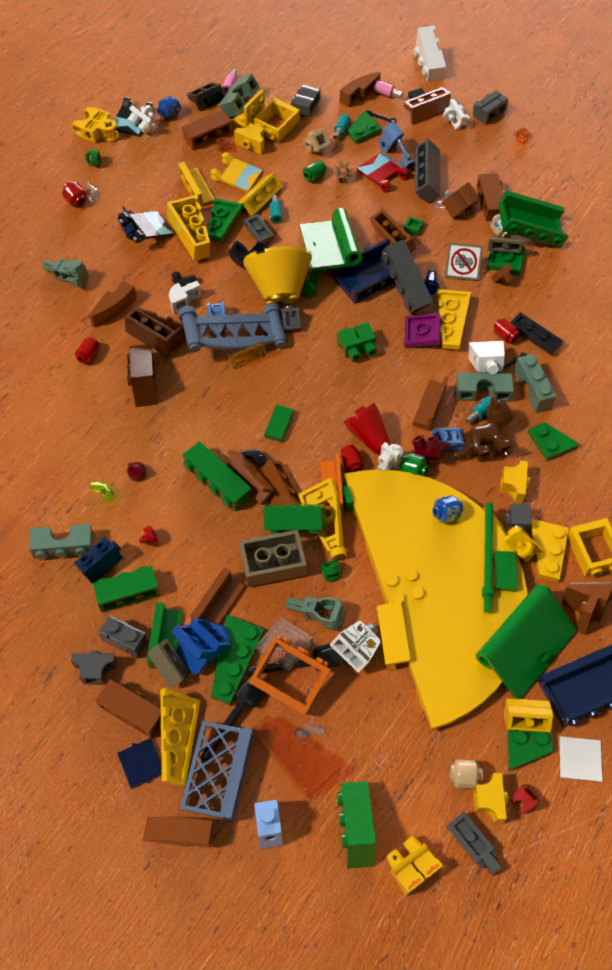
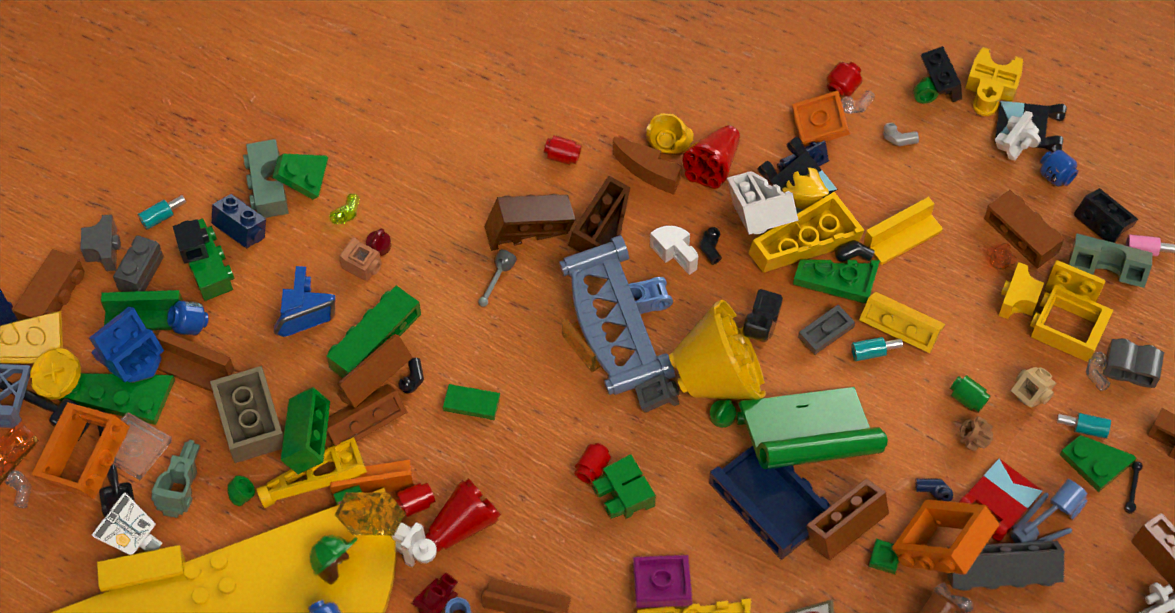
camera: 85 degrees right, 0 degrees up
(65, 514) = (301, 172): none -> green wing
(69, 271) = (695, 100): sand green piece -> none
(72, 623) = (159, 212): none -> teal piece
(84, 143) = (942, 73): none -> black bracket
(90, 290) = (669, 134): none -> yellow hair
(101, 210) = (820, 118): none -> orange plate
(116, 586) = (191, 241): none -> black brick
(119, 265) = (712, 157): none -> red cone
(122, 179) = (891, 134): none -> light grey arm
(150, 536) = (280, 272): red tile -> none
(151, 479) = (360, 260): none -> nougat window
(160, 215) = (807, 188): none -> yellow hair
(166, 240) = (760, 204): none -> white wedge
(168, 663) = (101, 313): dark tan slope -> none
(171, 394) = (504, 262): none -> hinge
(179, 600) = (187, 317): none -> blue head
(186, 517) = (303, 308): none -> blue piece
(205, 208) = (852, 249): none -> black arm
(213, 700) = (55, 373): none -> yellow tile
(237, 173) = (942, 289): yellow flag -> none
(308, 118) = (1095, 370): none -> clear arm
(337, 357) = (592, 463): none -> red brick
(372, 196) = (936, 487): none -> dark blue arm
(373, 471) = (370, 513): none -> clear yellow brick
(400, 180) = (976, 525): none -> orange window
(402, 498) = (327, 555): none -> green piece
(406, 276) = (746, 539): dark grey brick -> none
(414, 464) = (408, 582): green head -> none
(431, 282) = (763, 588): clear blue cone -> none

